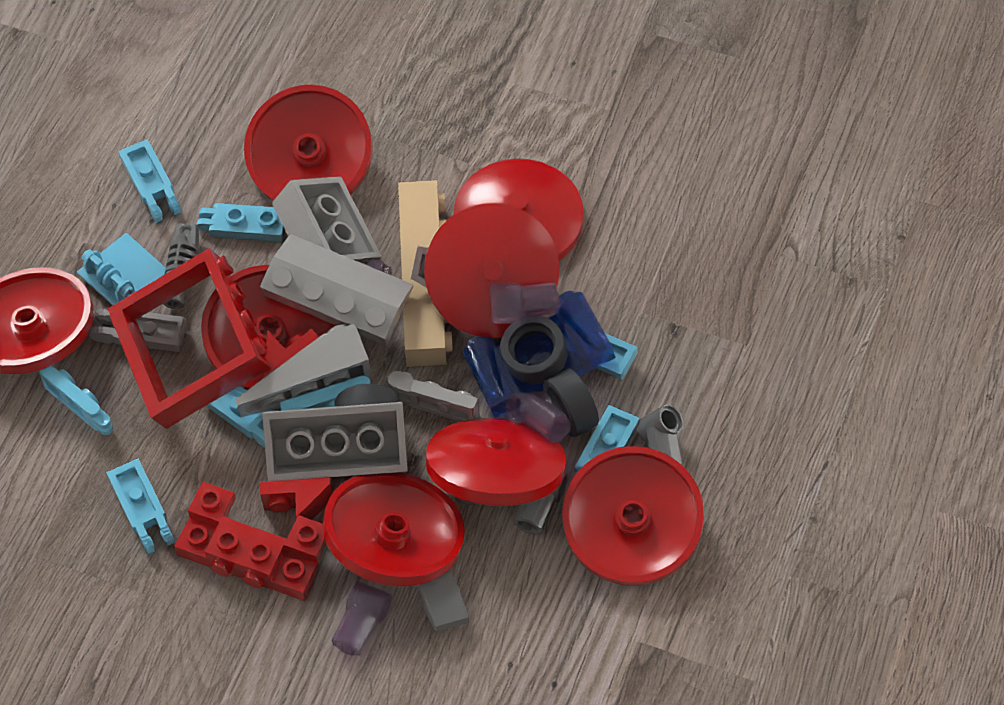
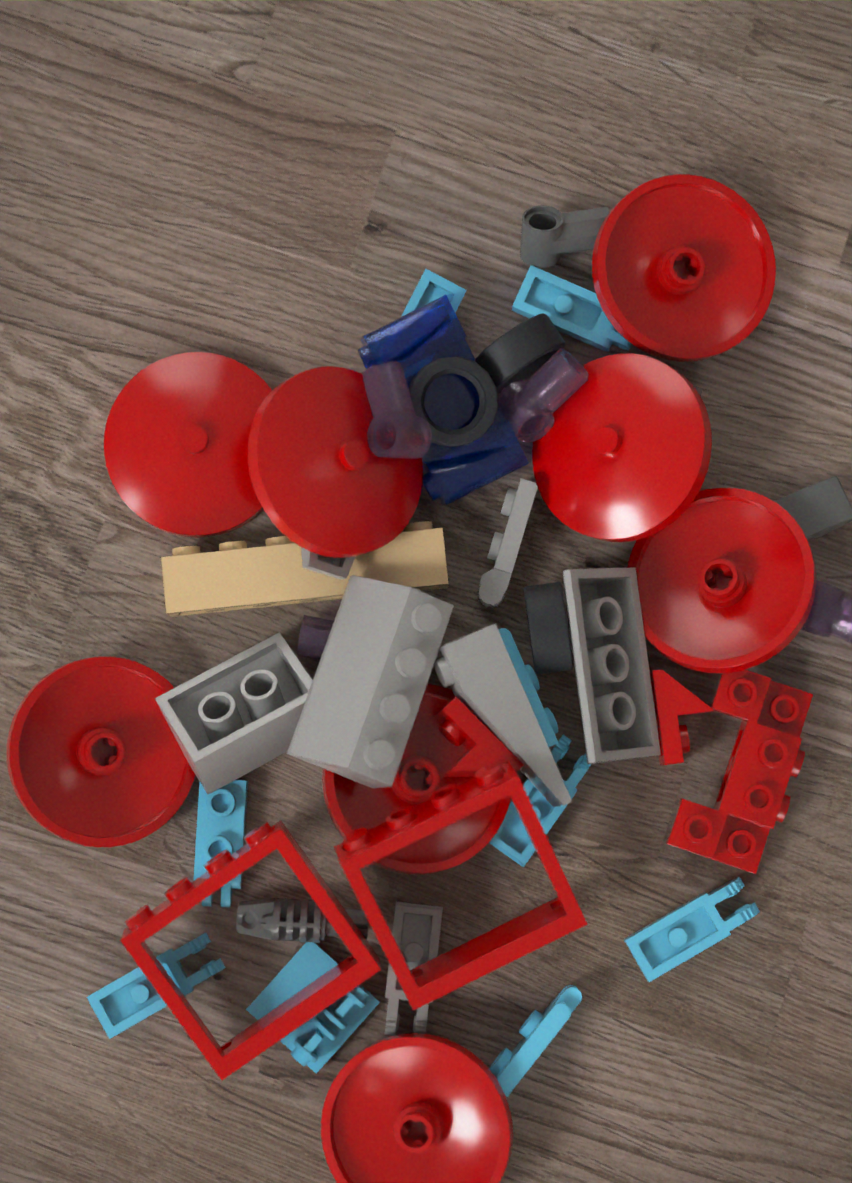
camera: 95 degrees left, 25 degrees up
(140, 177) = (292, 1012): none -> red window

